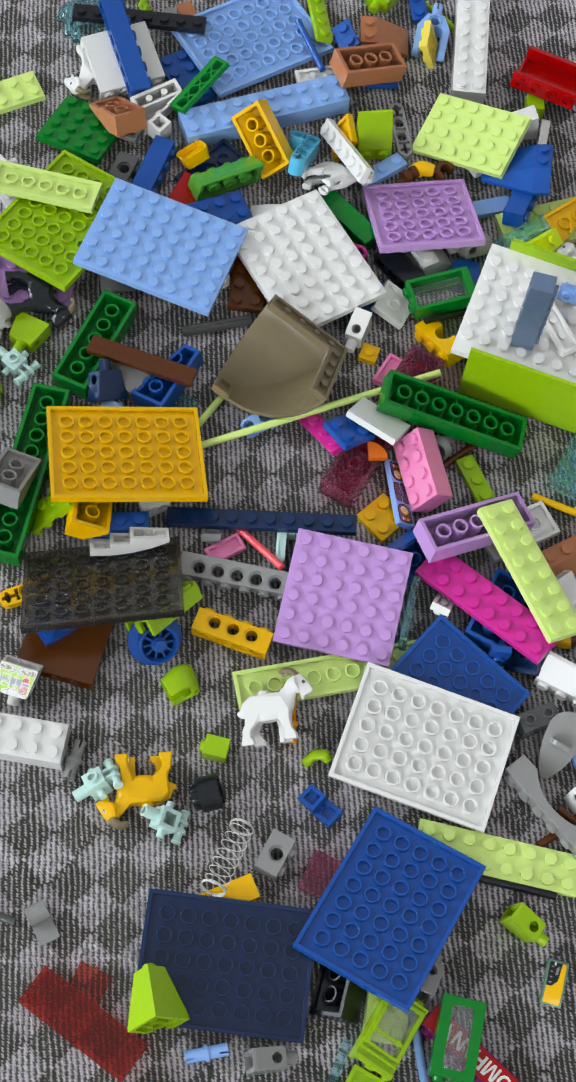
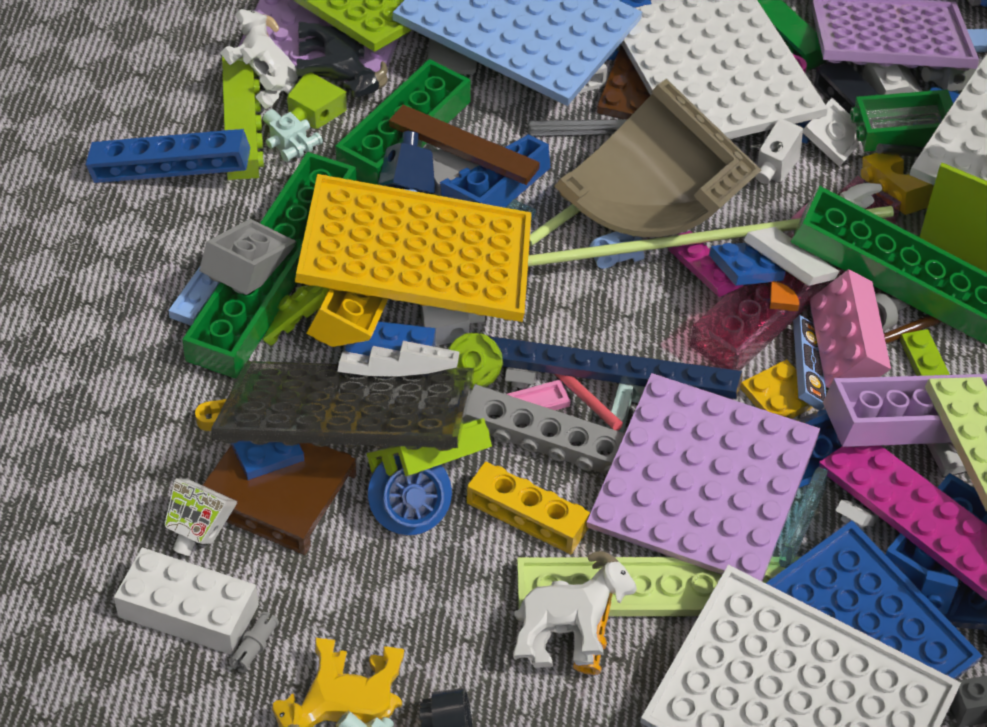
camera: 15 degrees right, 15 degrees down
(99, 782) = (283, 674): light aqua piece -> none
(180, 524) = (480, 353): none -> lime tile
(180, 683) = (435, 562): lime piece -> none
(215, 748) = (472, 658): lime brick -> none
(316, 754) = (627, 694): lime arm -> none
(369, 354) = (791, 189): yellow plate -> none
(416, 364) = (861, 194): none -> white hand

